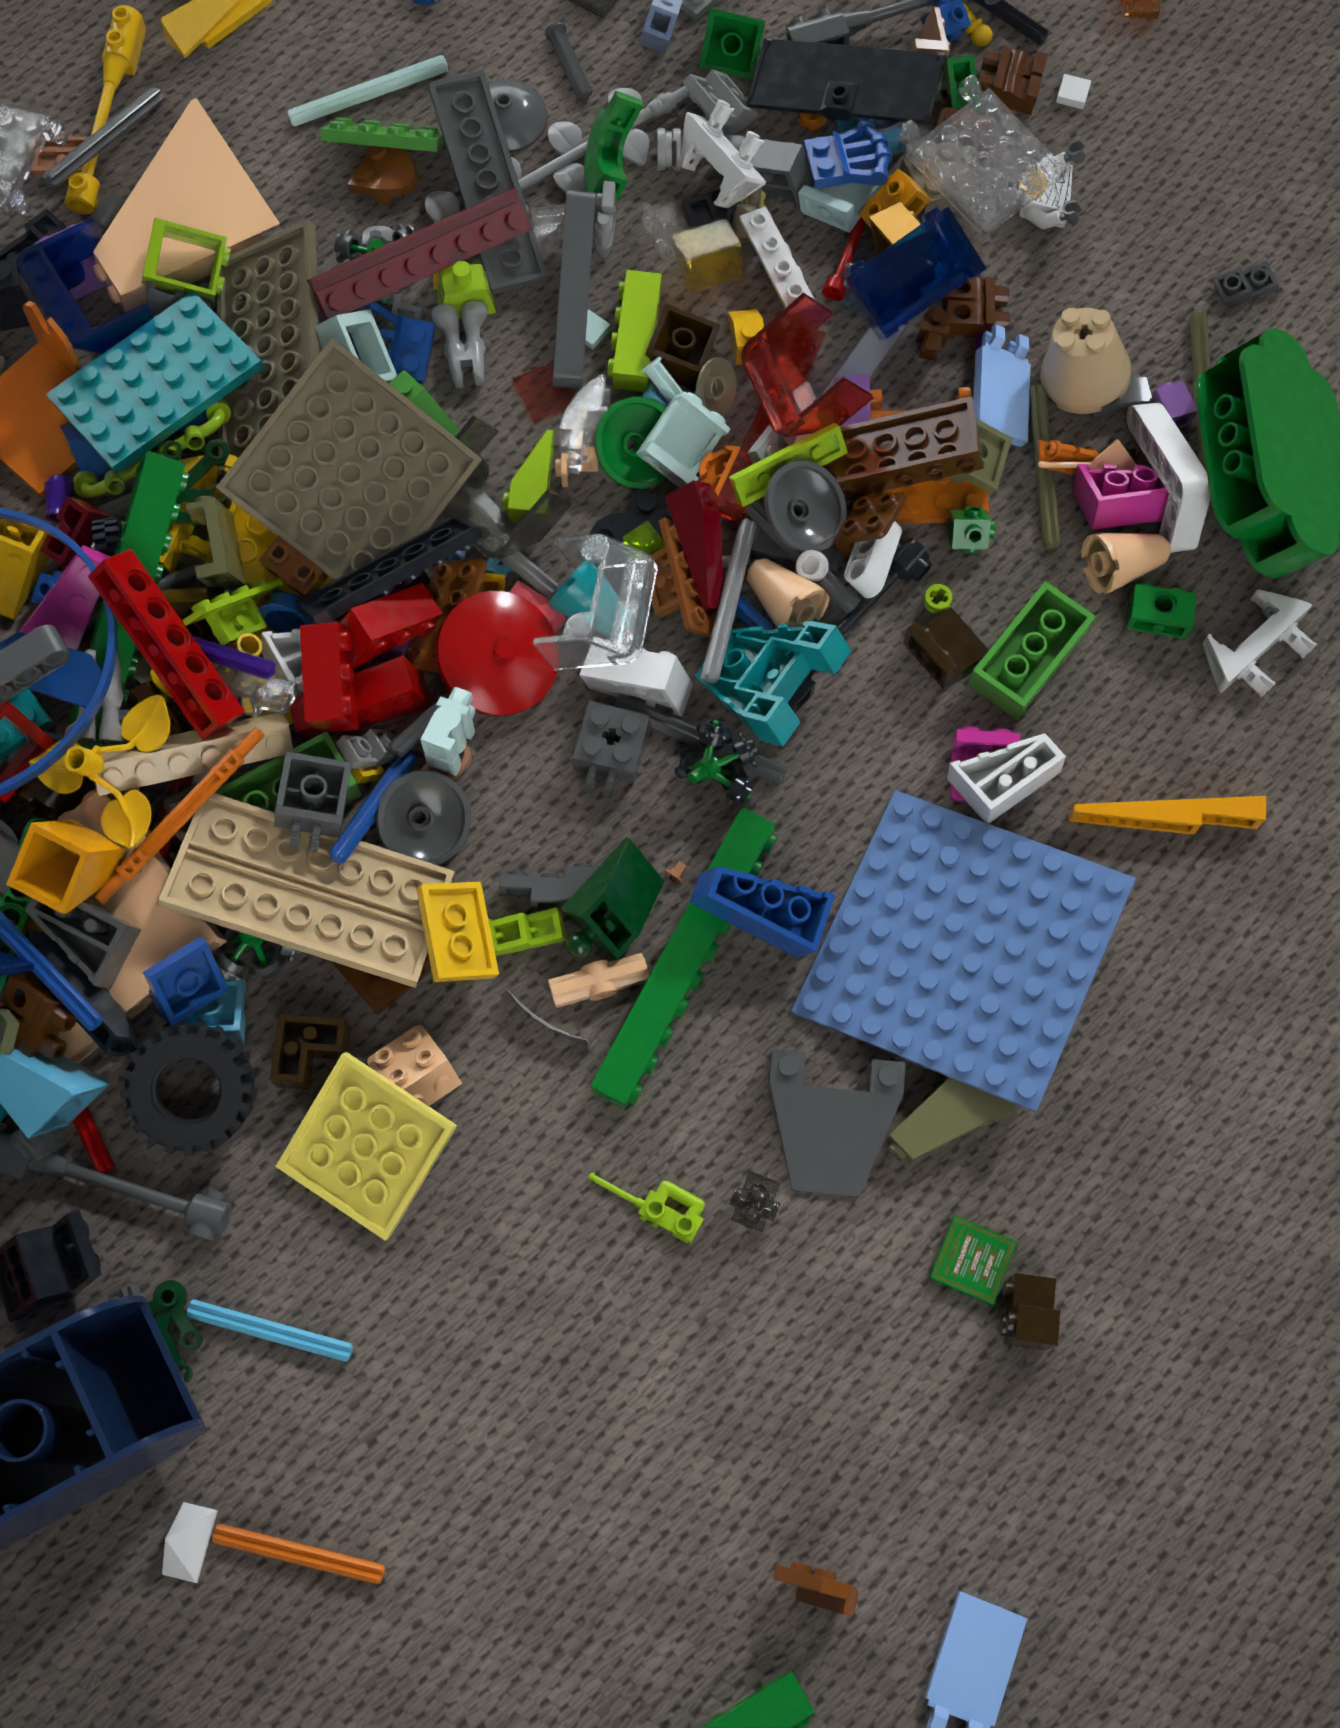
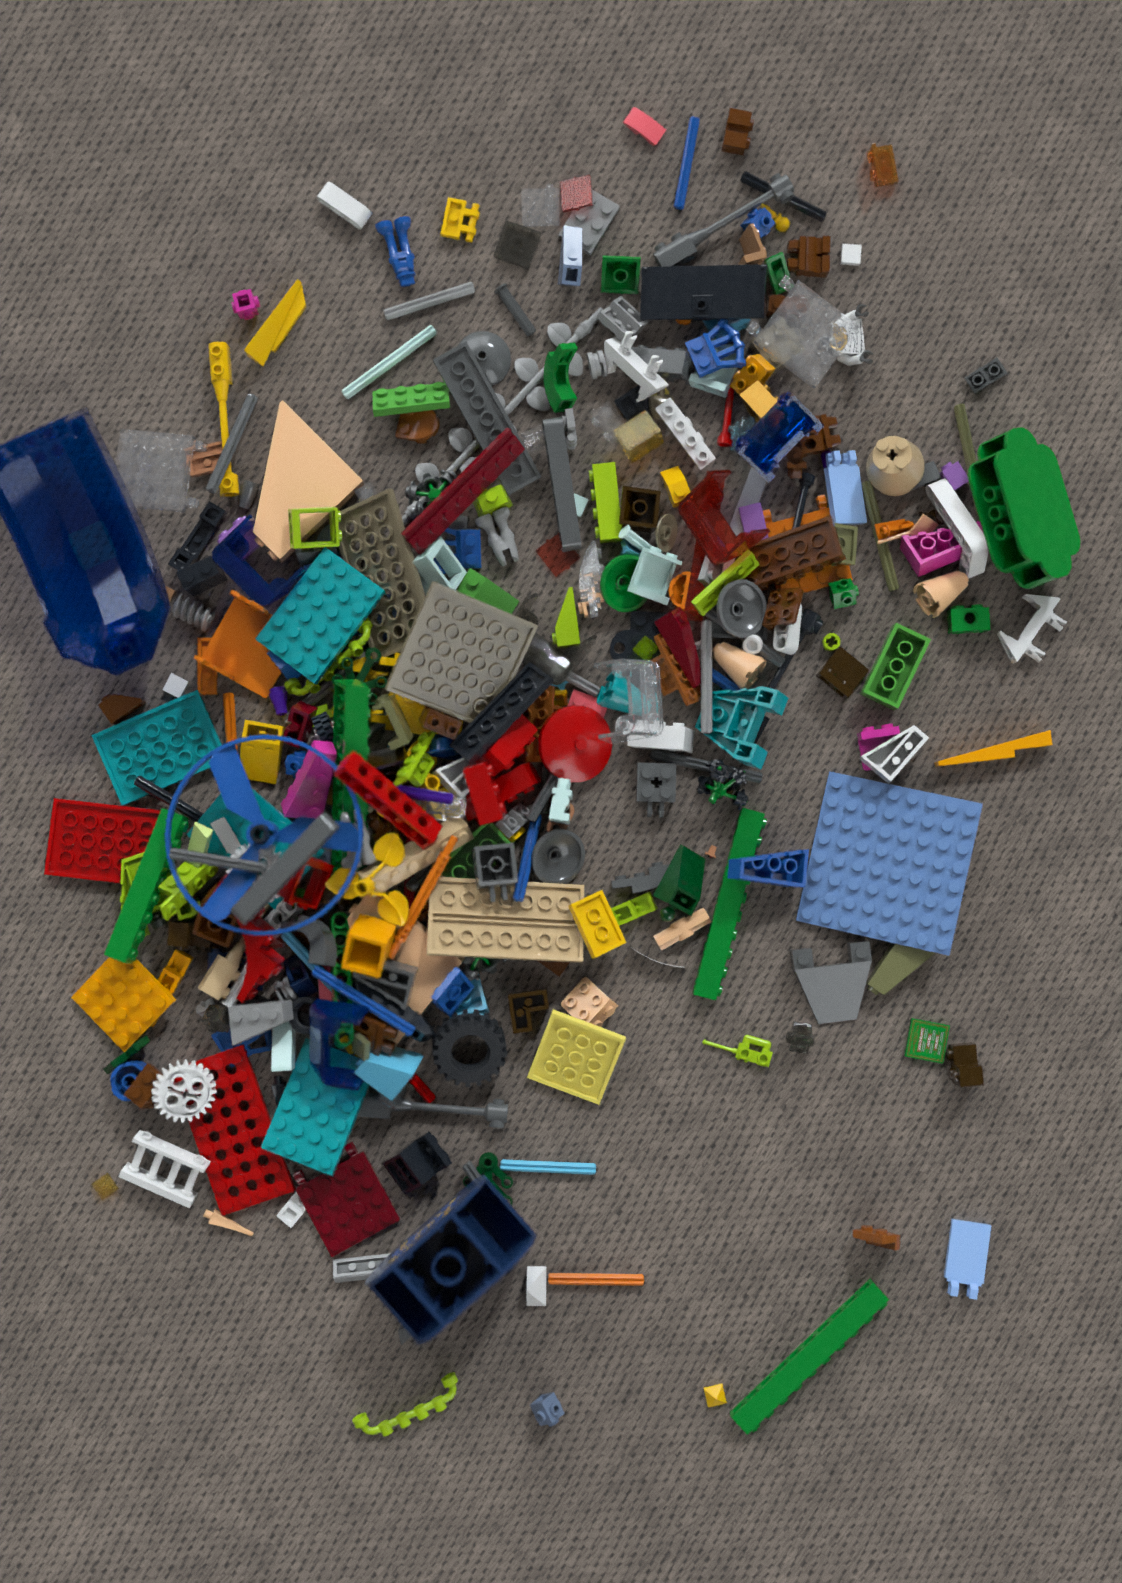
camera: 10 degrees left, 15 degrees up
(448, 27) = (429, 300): none -> light grey axle
(945, 365) = (805, 483): none -> black piece

